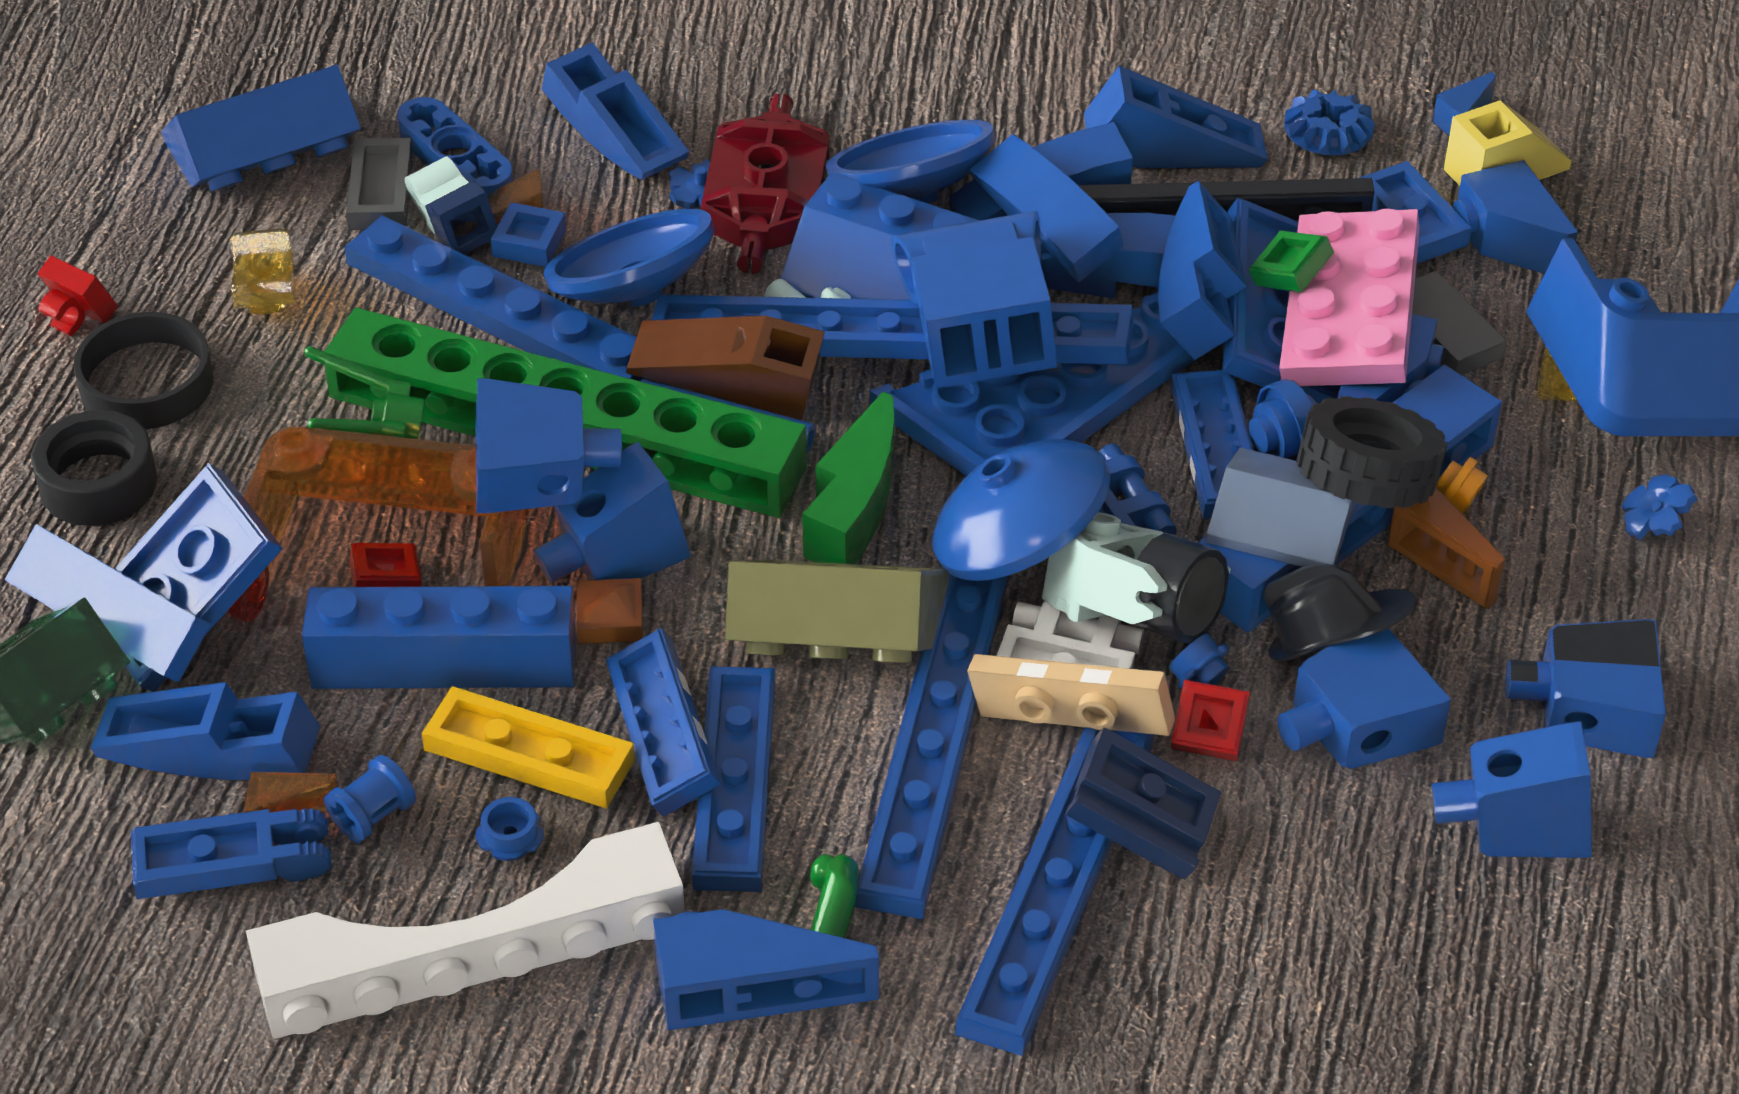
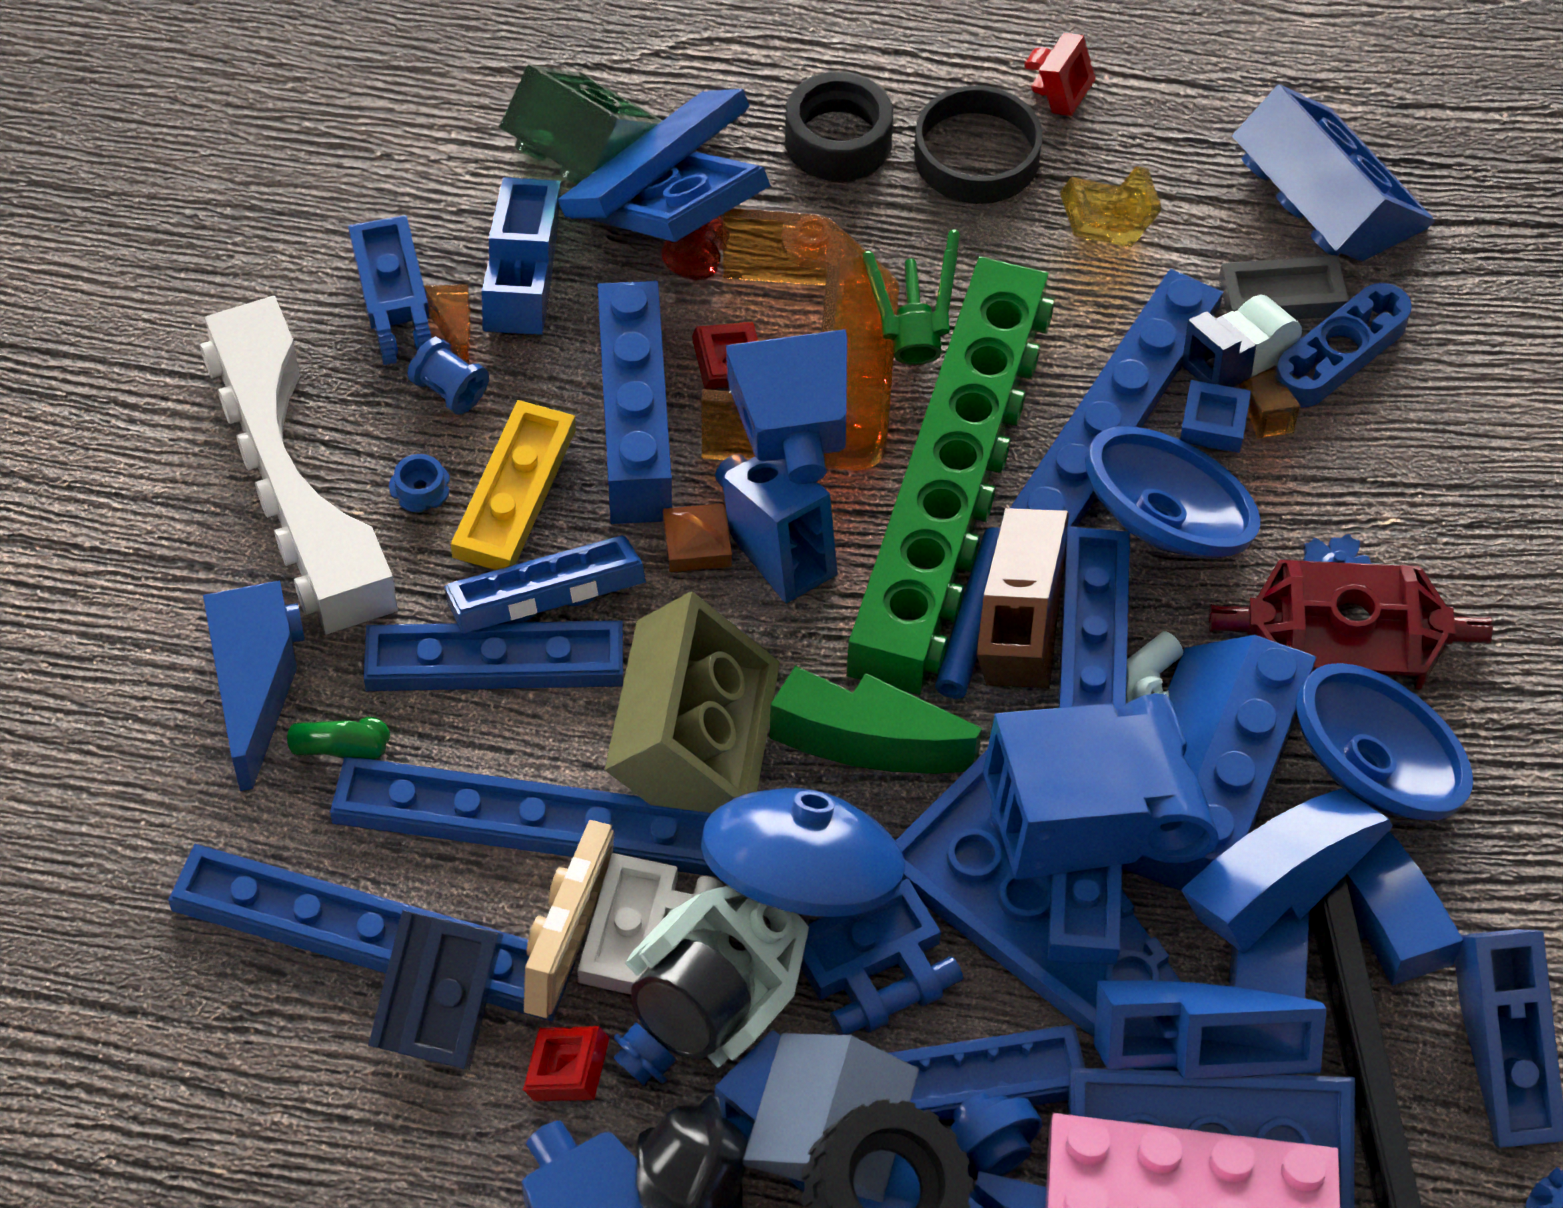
camera: 85 degrees right, 10 degrees up
(612, 112) = (1421, 470): blue slope -> none
(1291, 261) = (1222, 1120): green tile -> none

